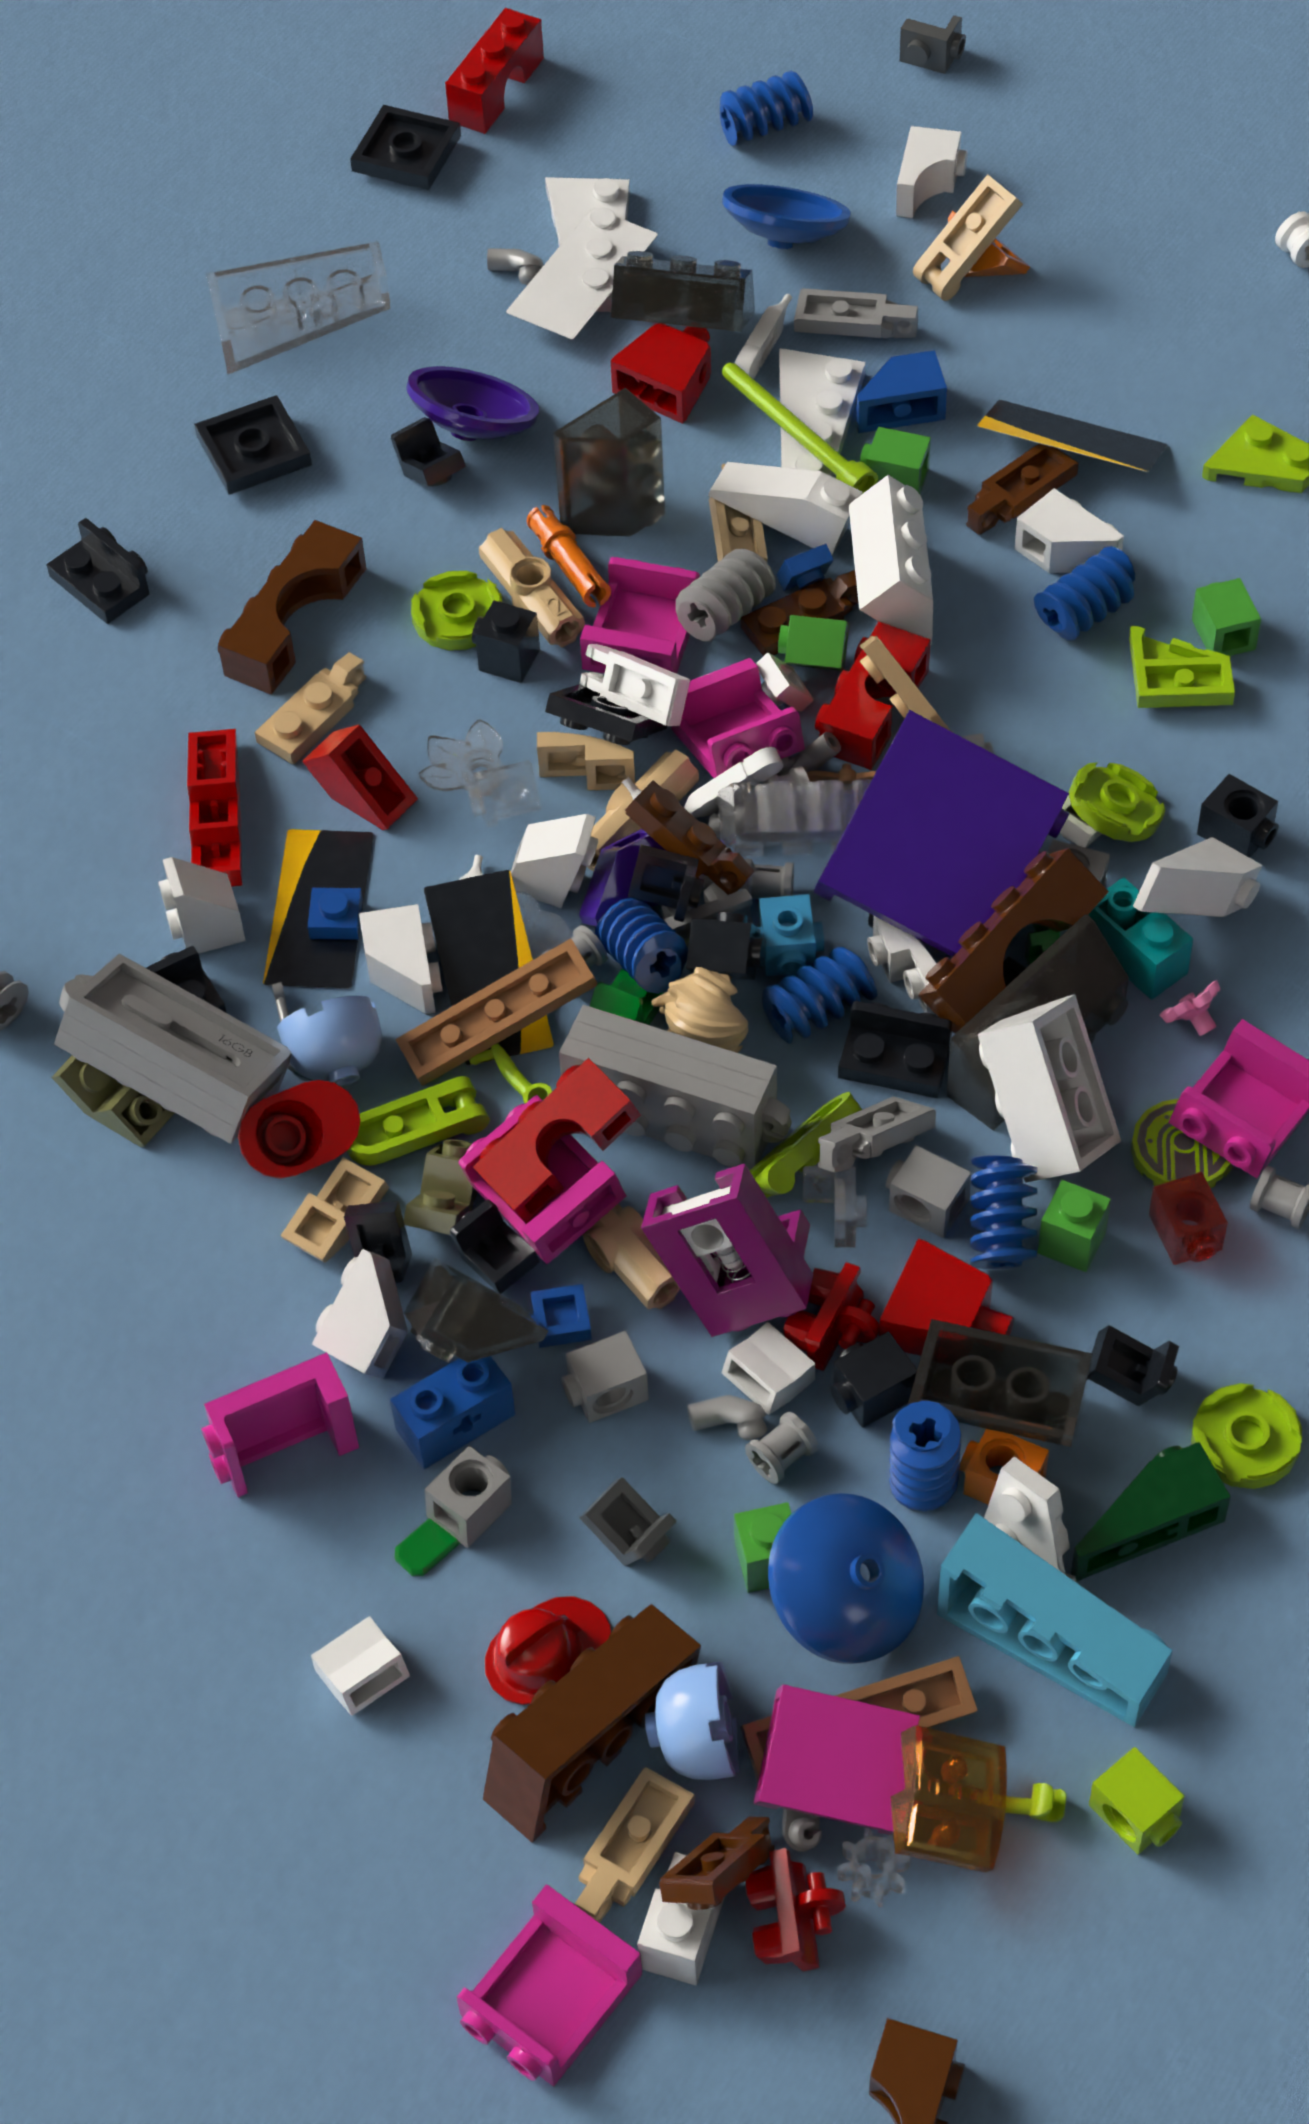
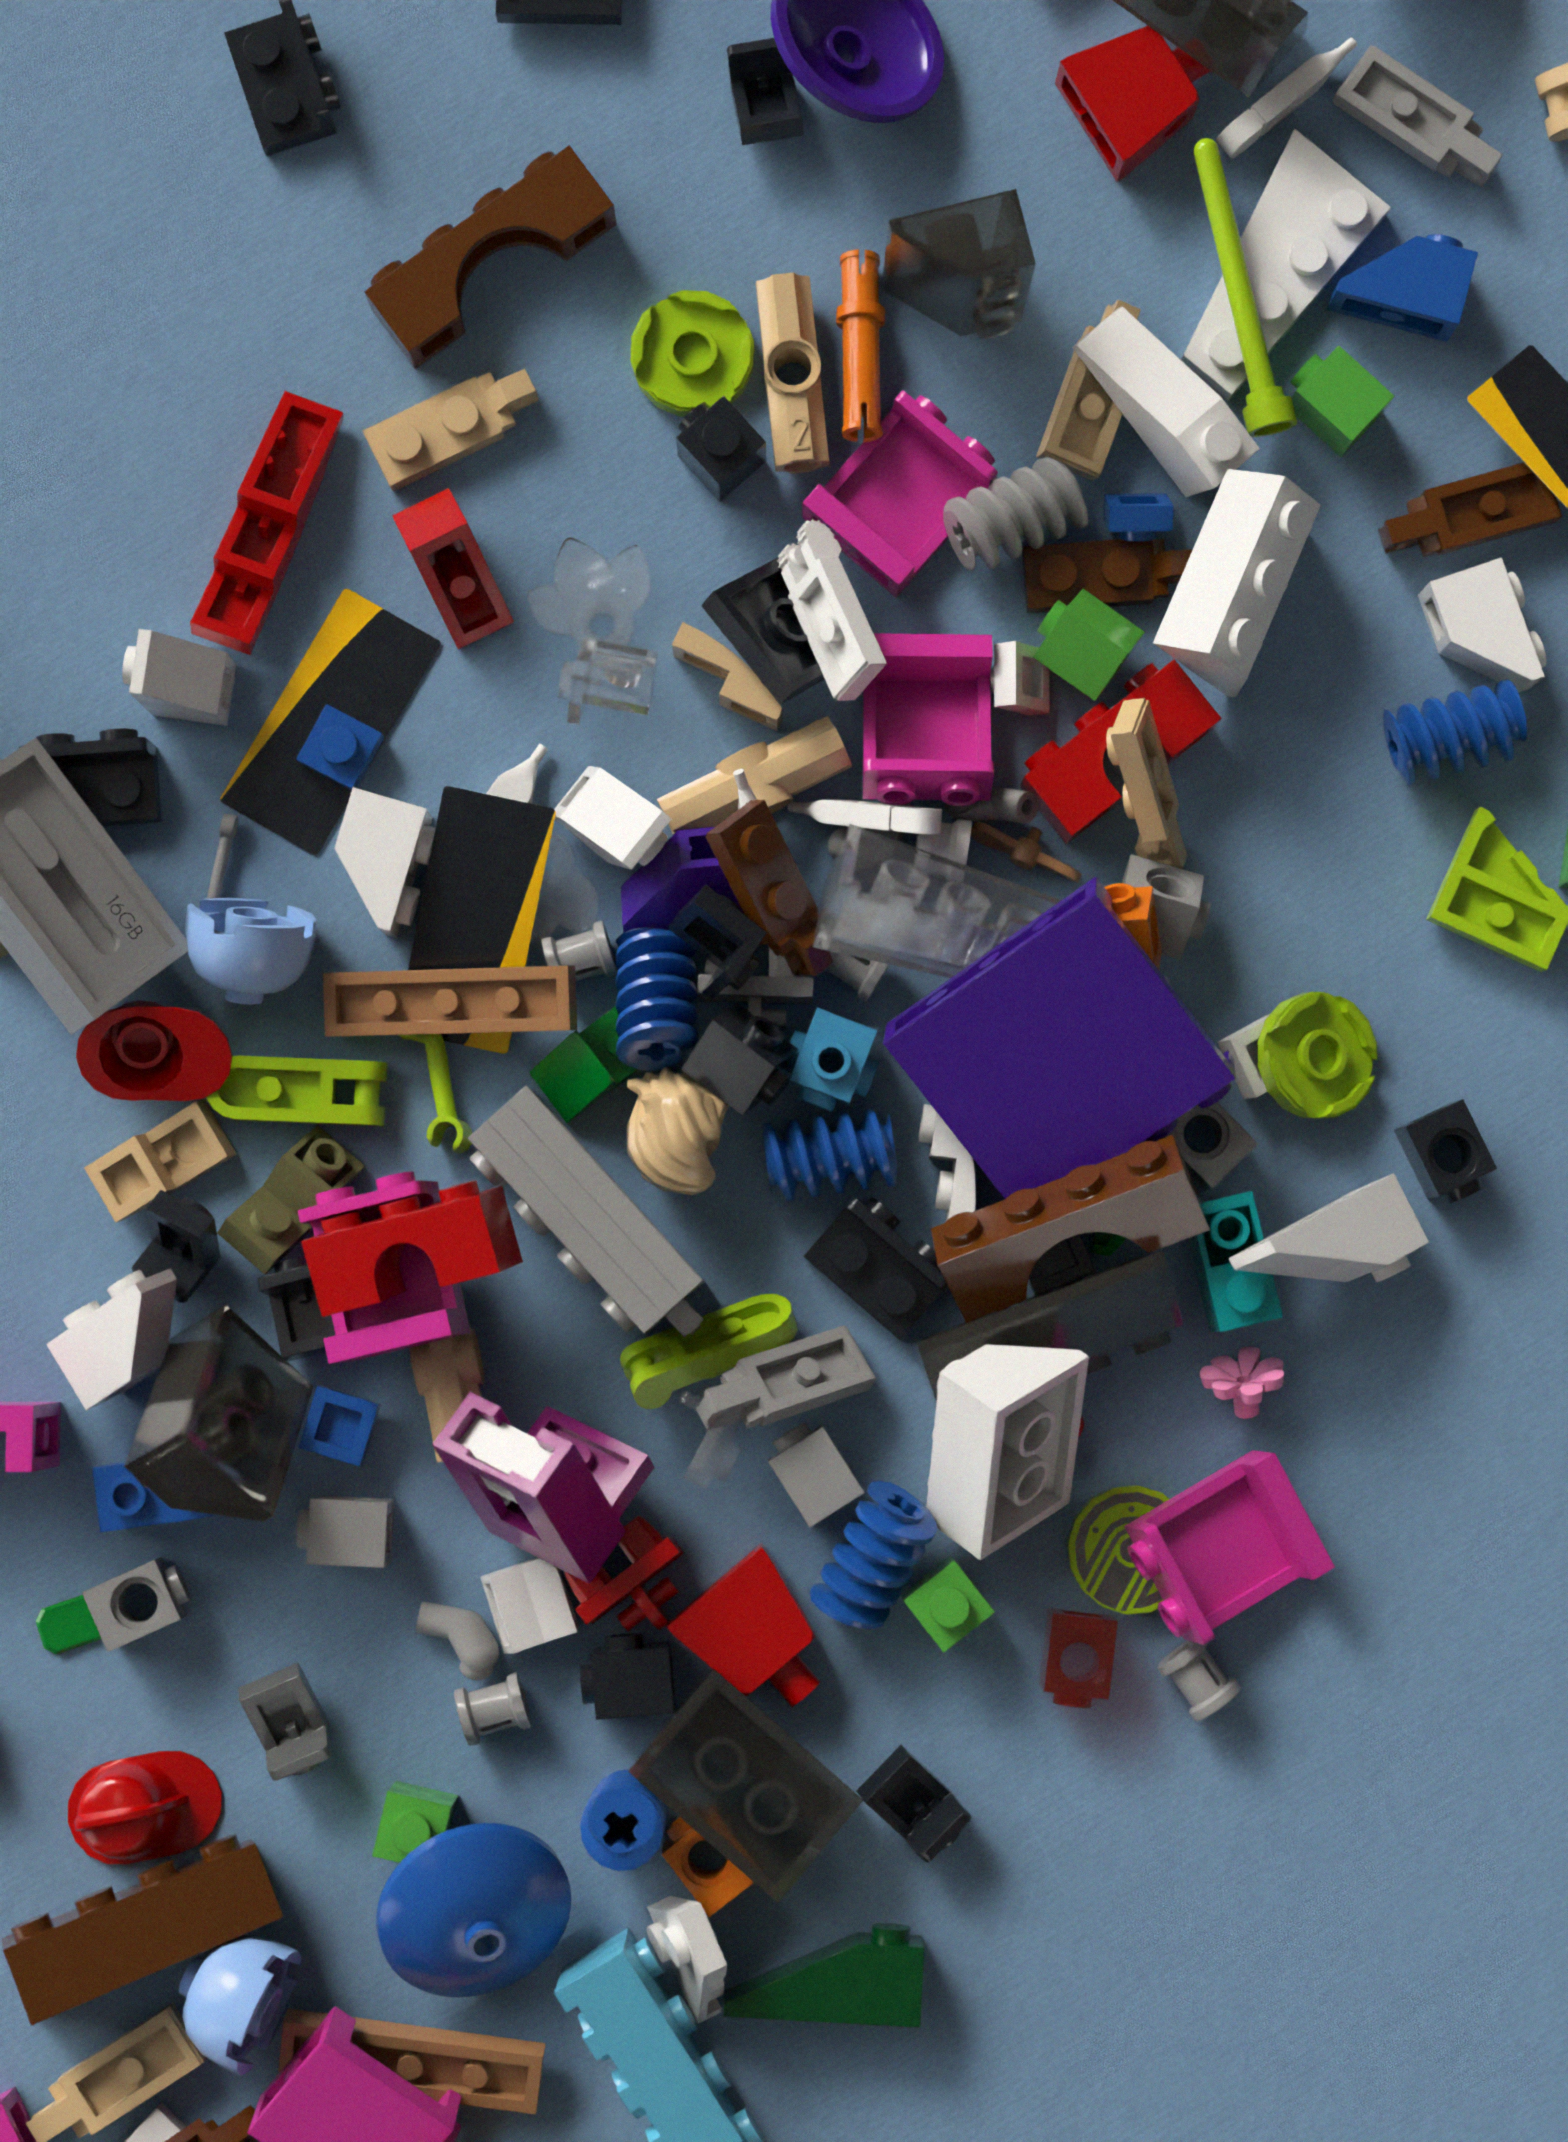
camera: 20 degrees right, 30 degrees up
(1248, 1435) = (994, 1934): lime tile -> none

